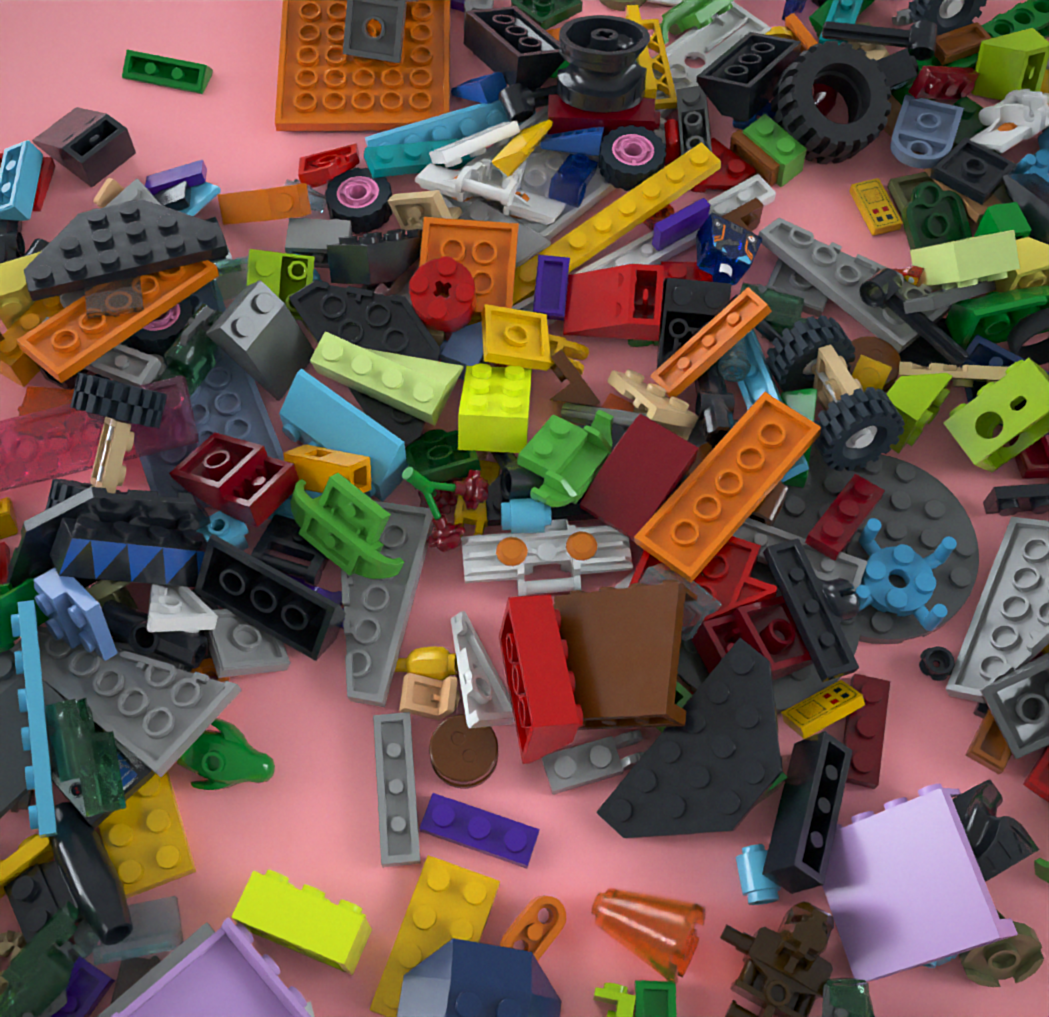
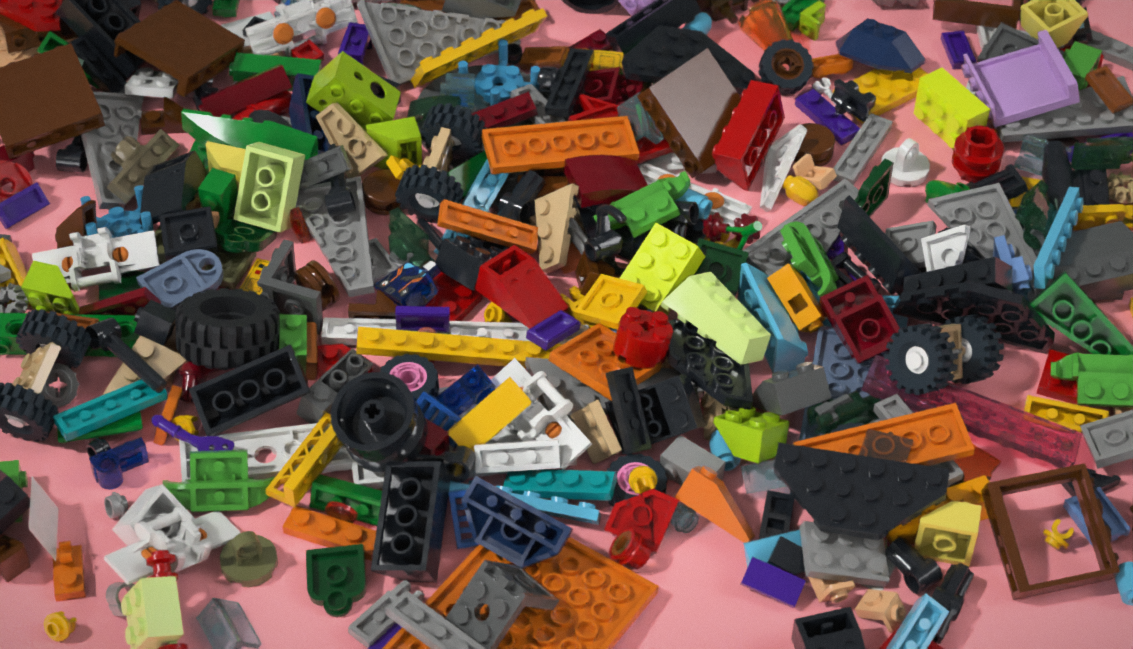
camera: 145 degrees left, 15 degrees down
(62, 209) = (882, 606): none -> light nougat bracket
(165, 807) = (1009, 179): none -> black plate
(218, 836) = (977, 153): none -> red piece
(320, 134) = (629, 549): none -> red piece
(326, 802) = (909, 164): none -> white tile
(329, 708) = (875, 188): none -> dark green plate
(343, 178) = (642, 479): none -> yellow plate
(401, 214) = (628, 410): none -> black plate
(423, 83) = (512, 526): none -> dark blue wedge
(470, 858) = (850, 99): none -> black hips
(512, 878) = (823, 86): none -> white hand
(574, 399) = (606, 241): none -> black piece
(585, 882) = (789, 53): none -> black wheel
(728, 32) = (201, 443): none -> dark purple piece
(813, 207) = (316, 277): none -> reddish brown head
(833, 172) = (278, 285): none -> dark grey bracket
(892, 673) = (543, 57): none -> dark orange tile
(924, 527) = (460, 85): none -> clear light blue brick
(926, 488) = (420, 107): none -> clear green slope
(965, 606) = (473, 49): none -> yellow plate

